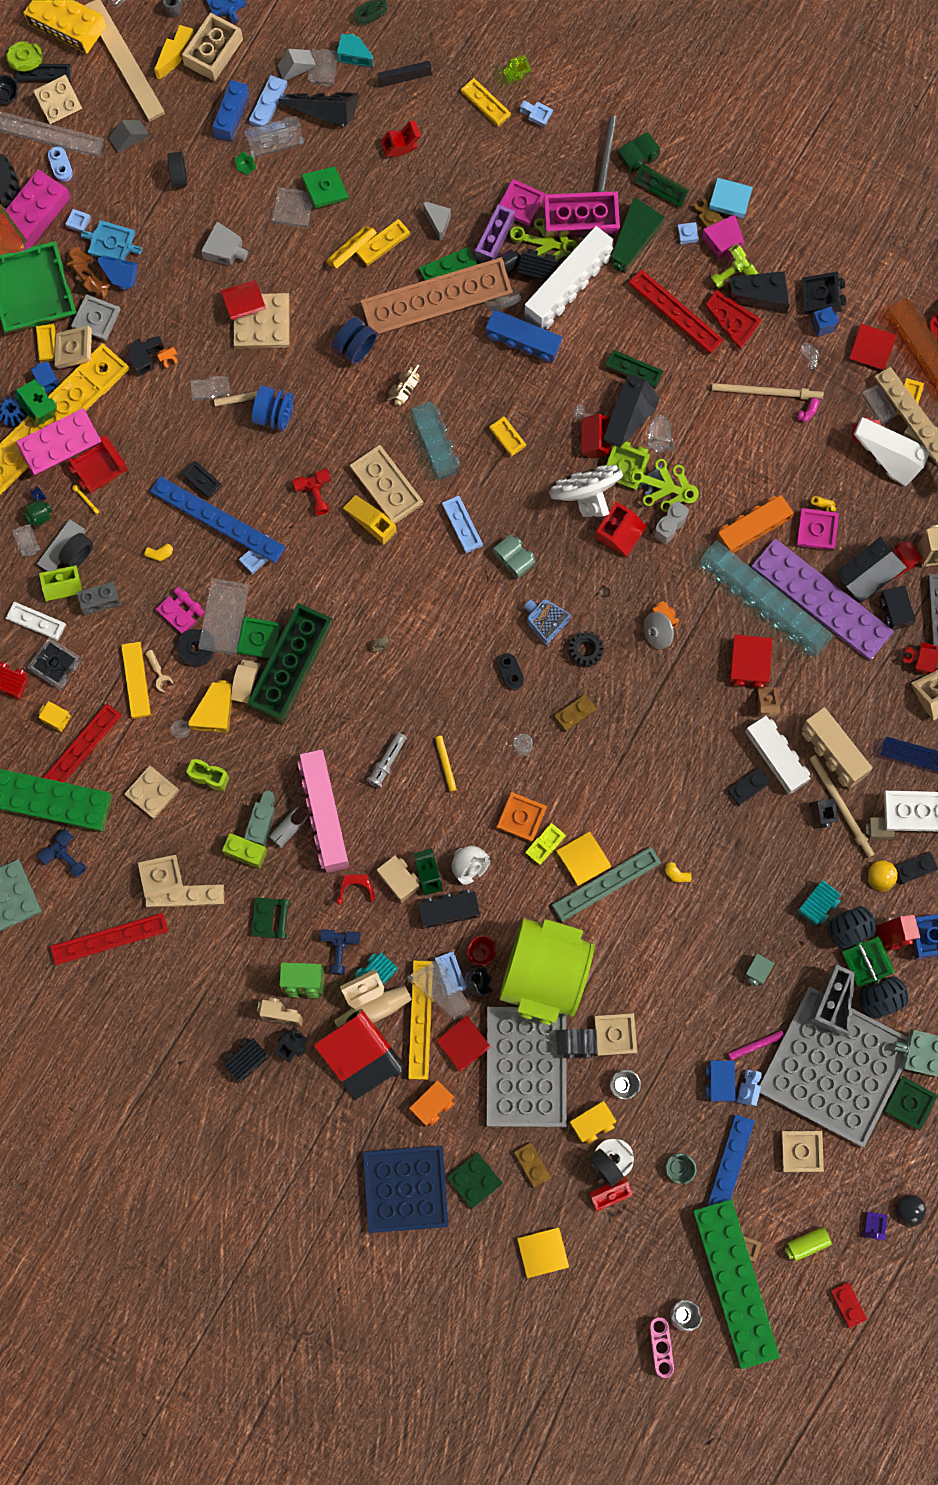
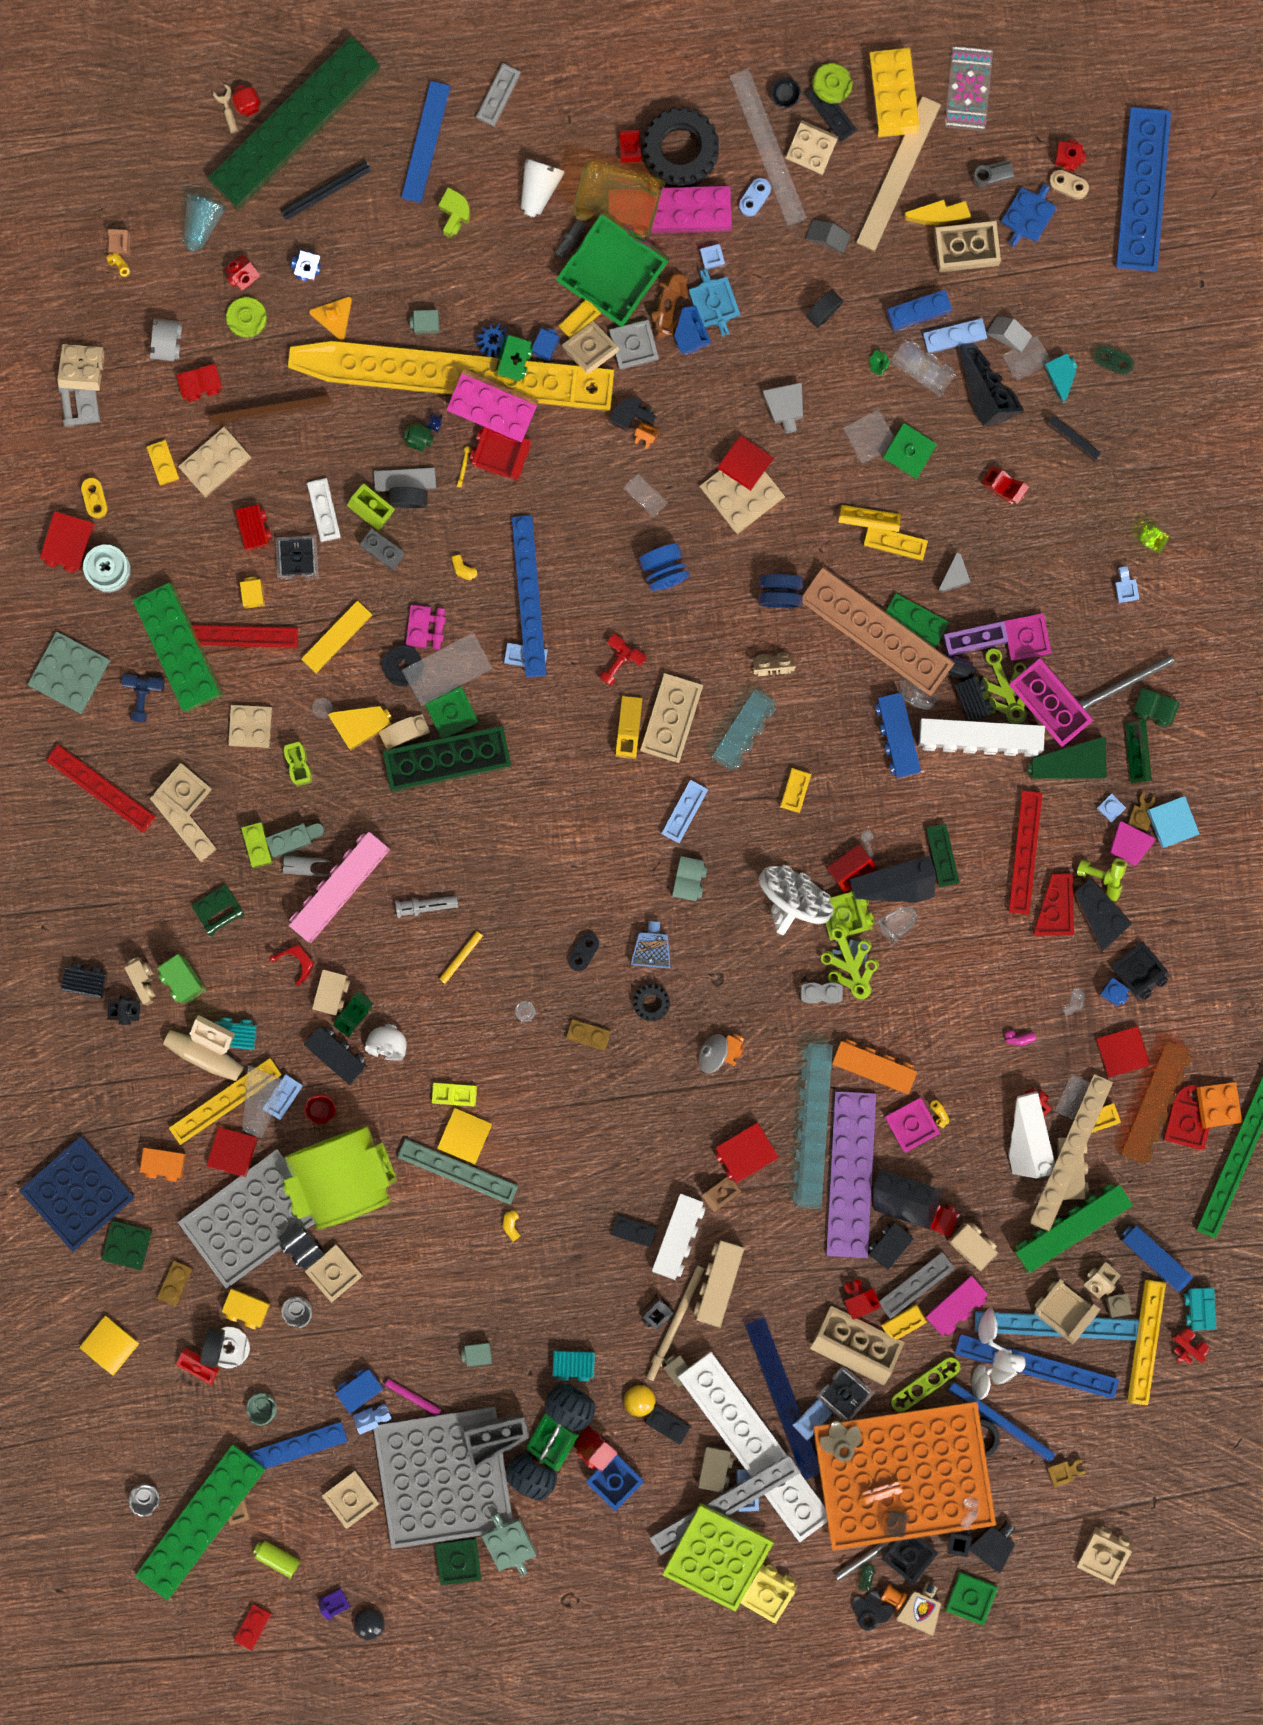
camera: 55 degrees right, 10 degrees up
(26, 540) = (387, 446): clear brick -> none
(156, 667) = (359, 647): tan piece -> none
(201, 479) = (556, 554): black plate -> none
(234, 399) = (654, 527): tan bar -> none
(339, 941) = (241, 984): dark blue bar -> none
(359, 1054) = (157, 1073): red door -> none
(379, 644) = (524, 823): dark tan tile -> none
(478, 981) = (292, 1125): black hair -> none
(485, 102) = (1103, 531): yellow tile -> none
(521, 817) = (461, 1057): orange plate -> none
(620, 529) = (781, 954): red slope -> none
(667, 1355) = (97, 1505): bright pink beam -> none
(804, 393) = (1032, 1022): tan bar -> none

